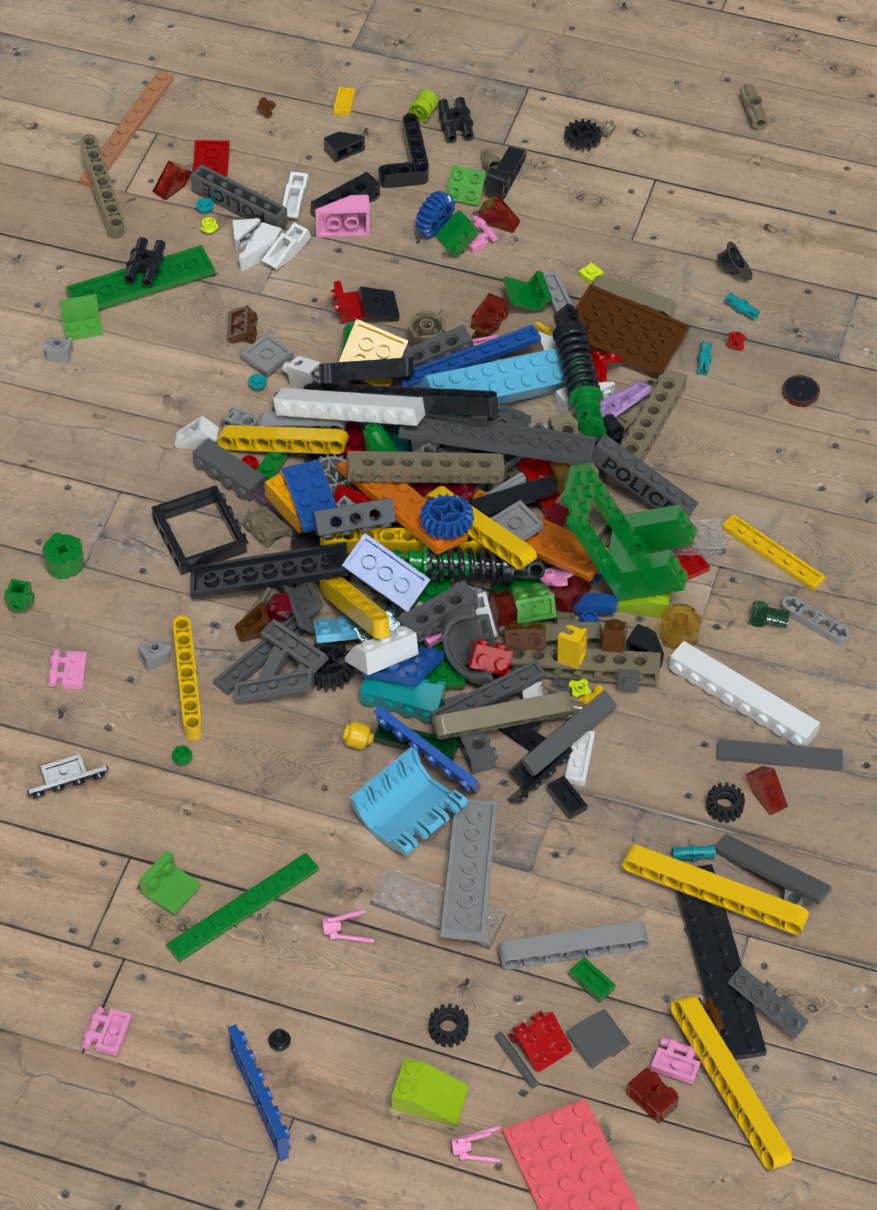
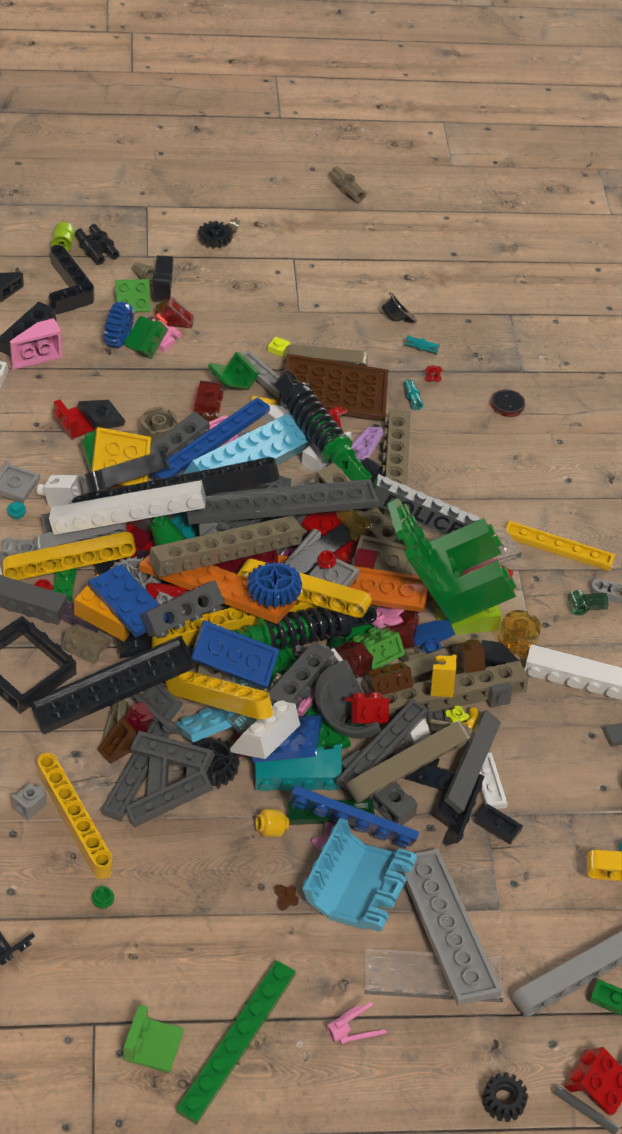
camera: 25 degrees left, 5 degrees down
(342, 803) = (287, 896): none -> reddish brown piece
(515, 505) = (326, 559): none -> red plate

